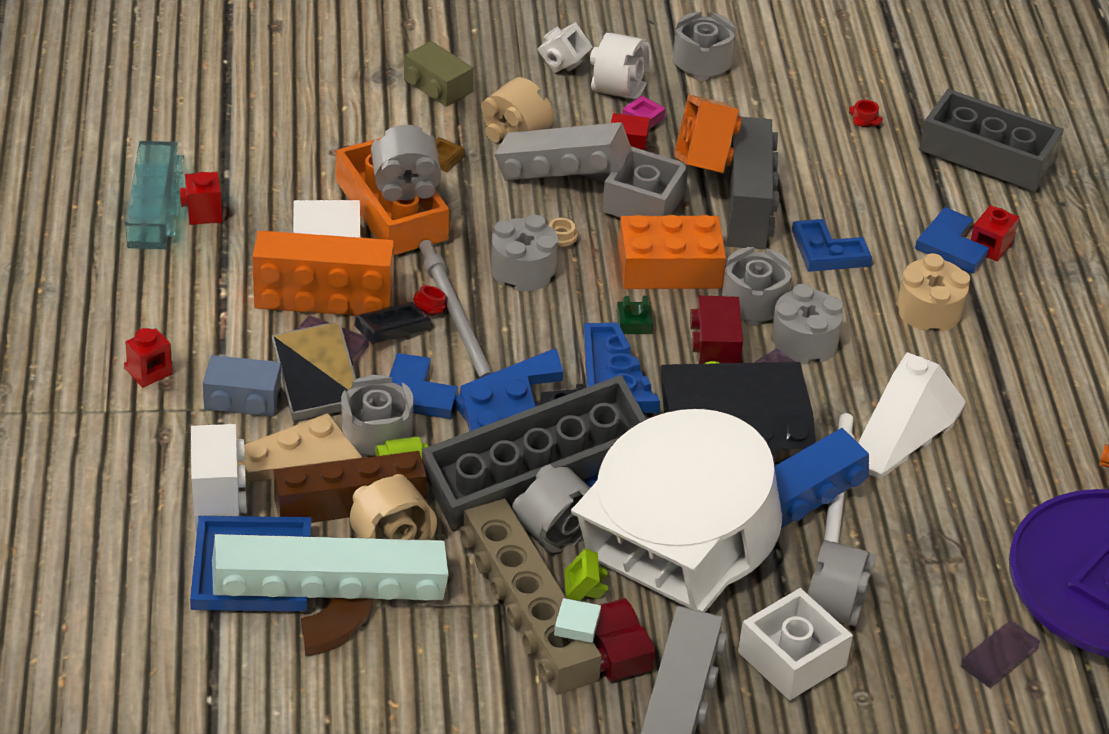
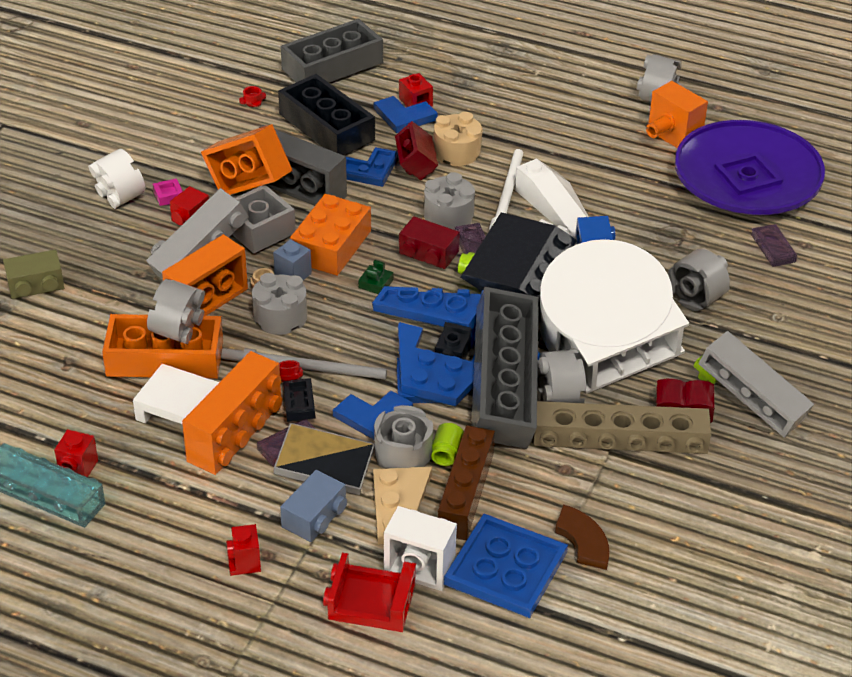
camera: 60 degrees left, 0 degrees up
(148, 470) = (370, 595): none -> red panel
(329, 567) = (553, 518): light aqua brick -> none
(392, 511) = (518, 466): tan brick -> none
(448, 153) = (123, 305): pearl gold tile -> none
(506, 181) = (216, 269): none -> orange brick
(516, 109) = (127, 247): tan brick -> none
(562, 53) = (68, 198): white brick -> none
(577, 620) = (677, 405): light aqua tile -> none
(584, 577) = (618, 392): lime tile -> none
(598, 240) = (292, 260): none -> sand blue brick
(704, 45) = (126, 130): light grey brick -> none
(757, 281) = (395, 205): light grey brick -> none
(795, 643) = (741, 314): white brick -> none
(817, 382) = (509, 185): none -> white bar
(871, 175) = (326, 115): none -> black brick
(873, 267) = (416, 151): none -> dark red brick

